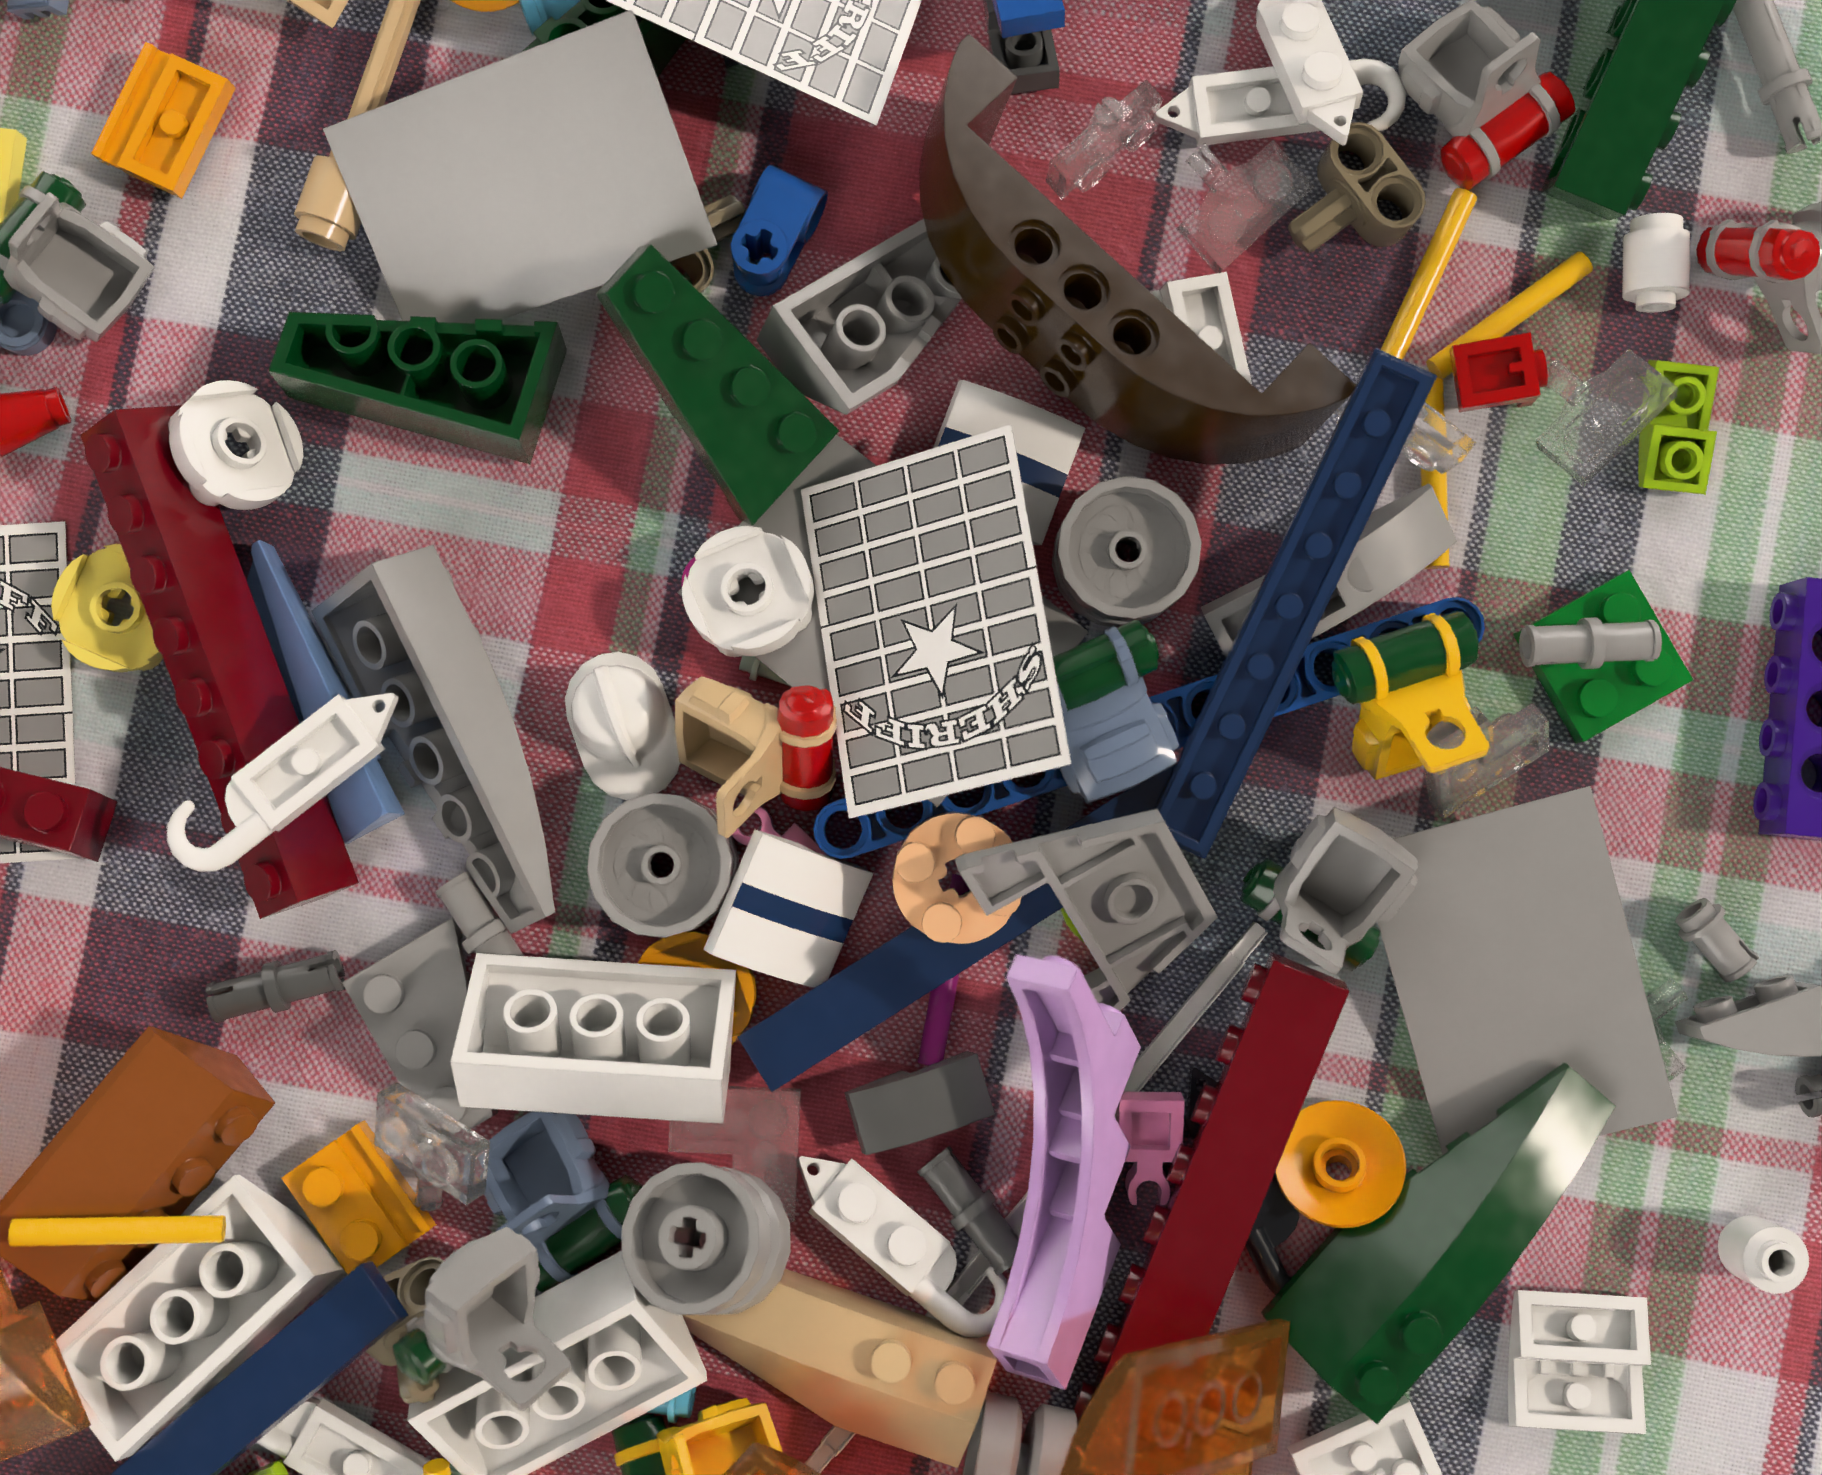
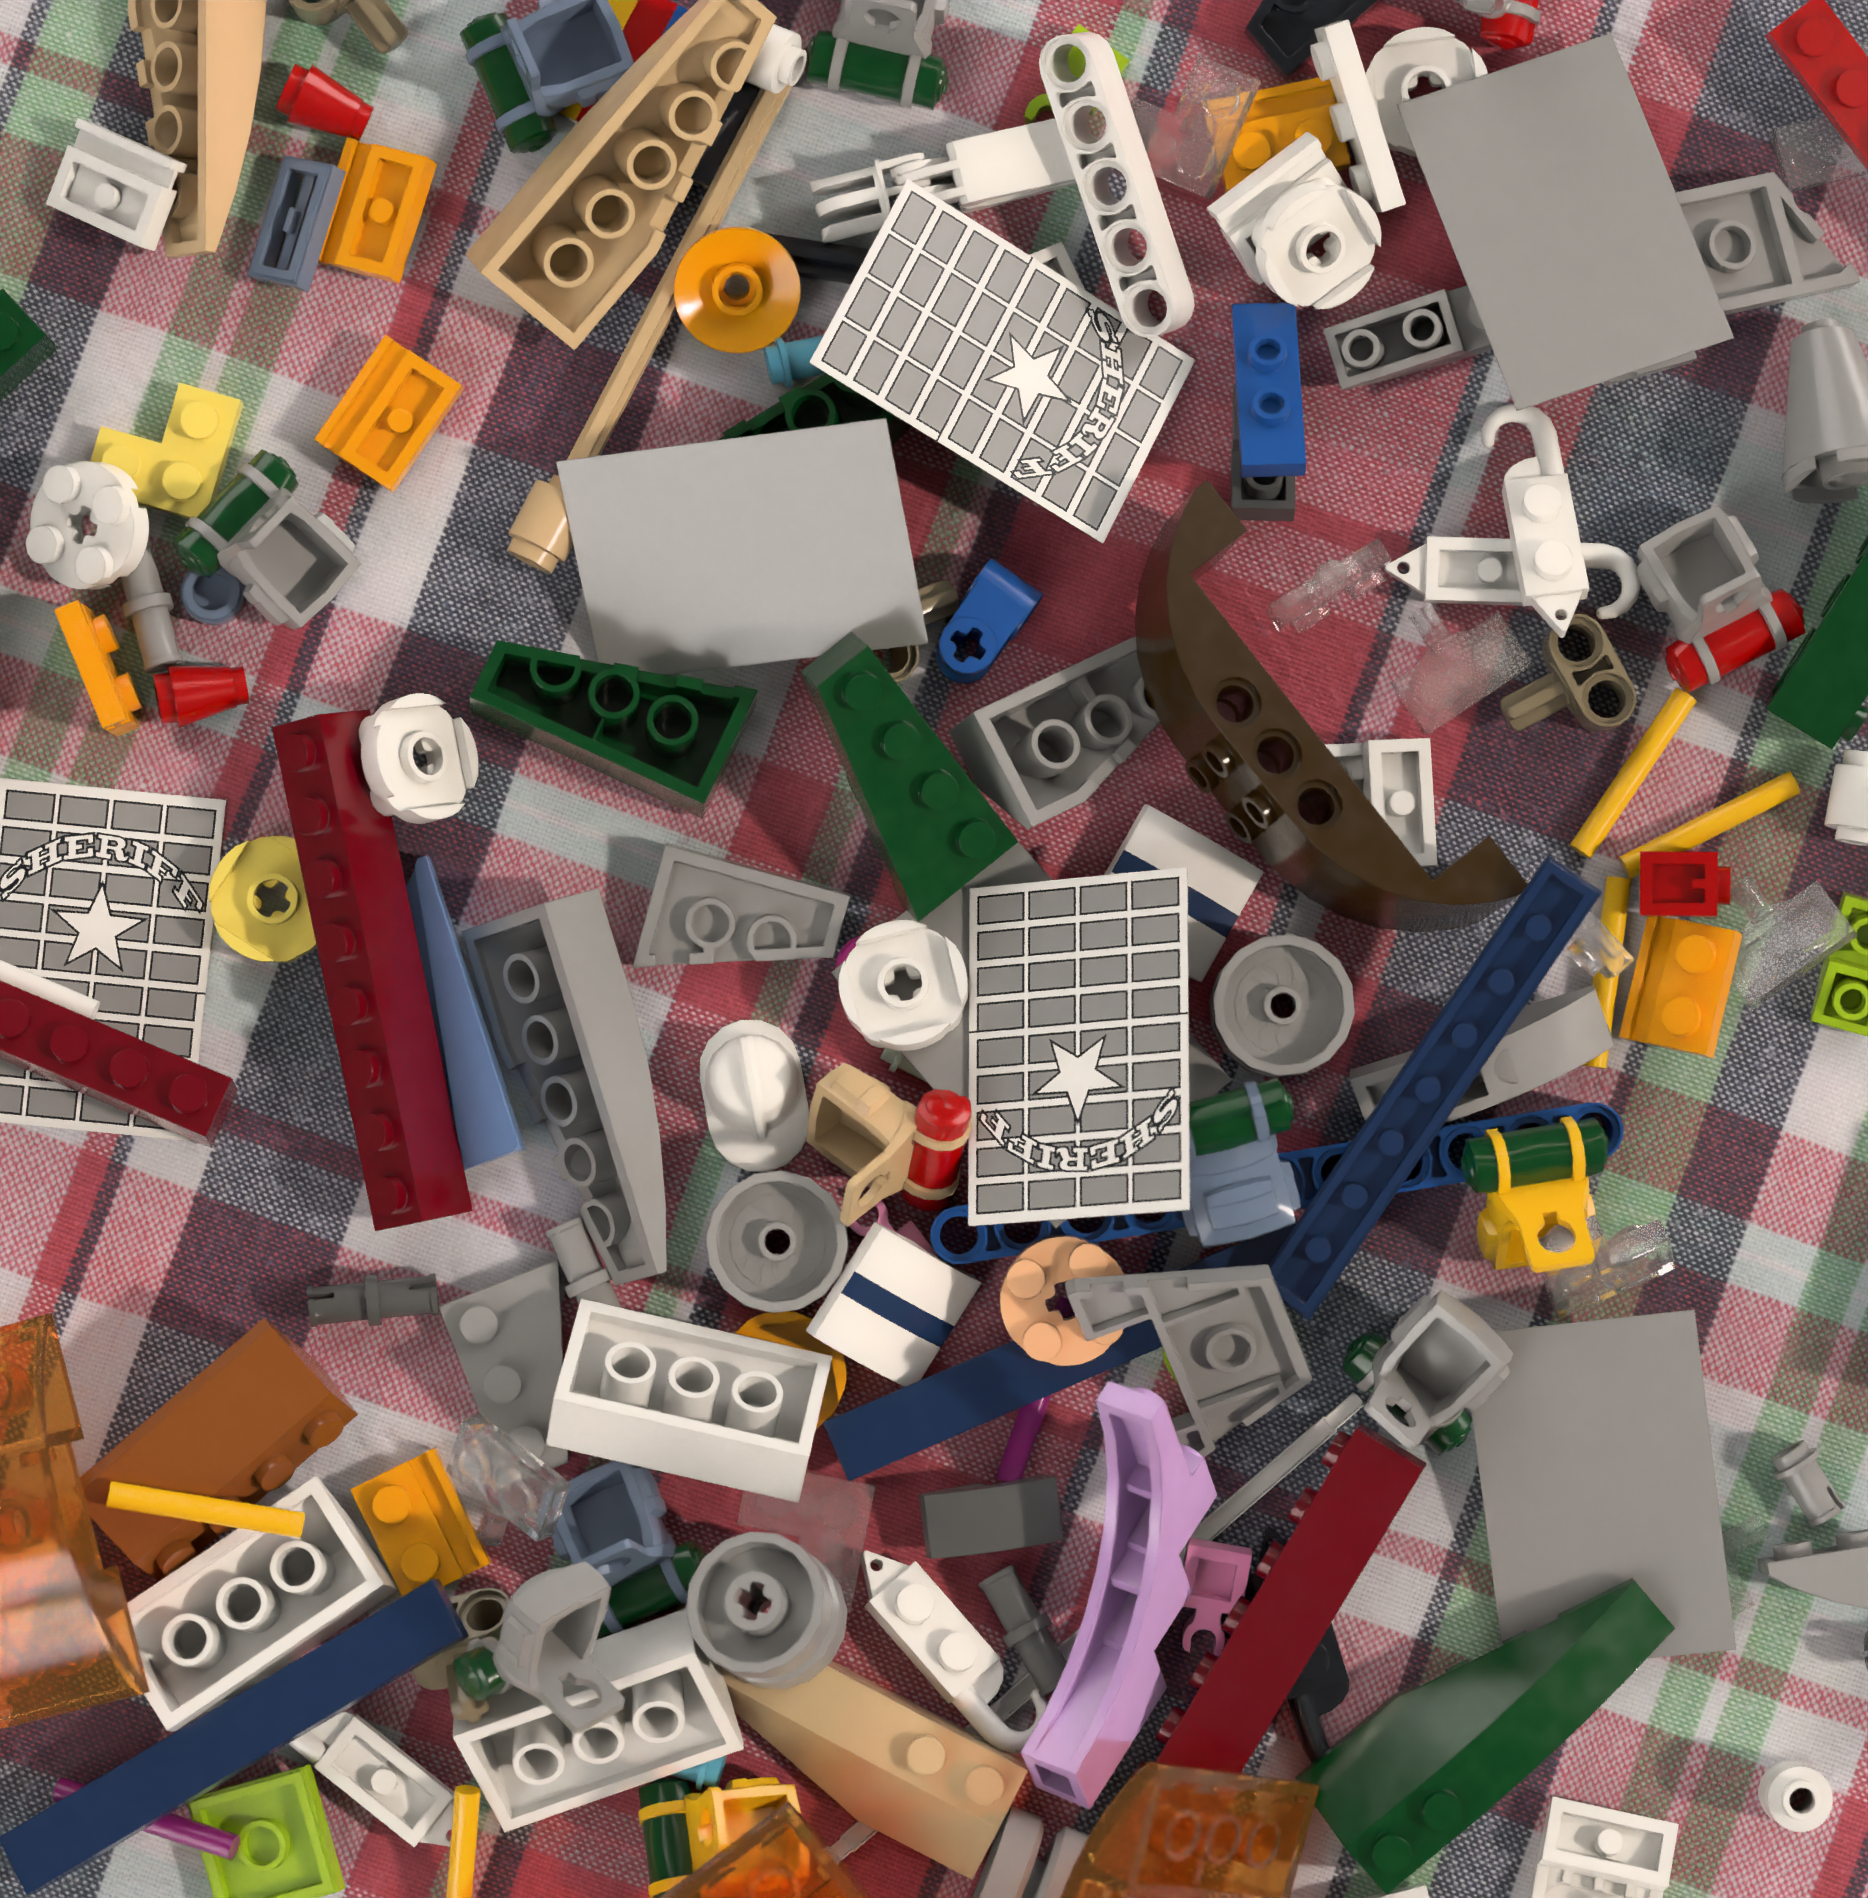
camera: 10 degrees right, 0 degrees up
(289, 778) = (434, 1101): white plate -> none
(573, 550) = (732, 911): none -> light grey wing
(1345, 1135) = (1402, 1616): light orange dish -> none
(1511, 473) = (1680, 985): none -> light orange plate
(1590, 643) = (1724, 1169): light grey pin -> none
(1606, 695) = (1744, 1183): green plate -> none

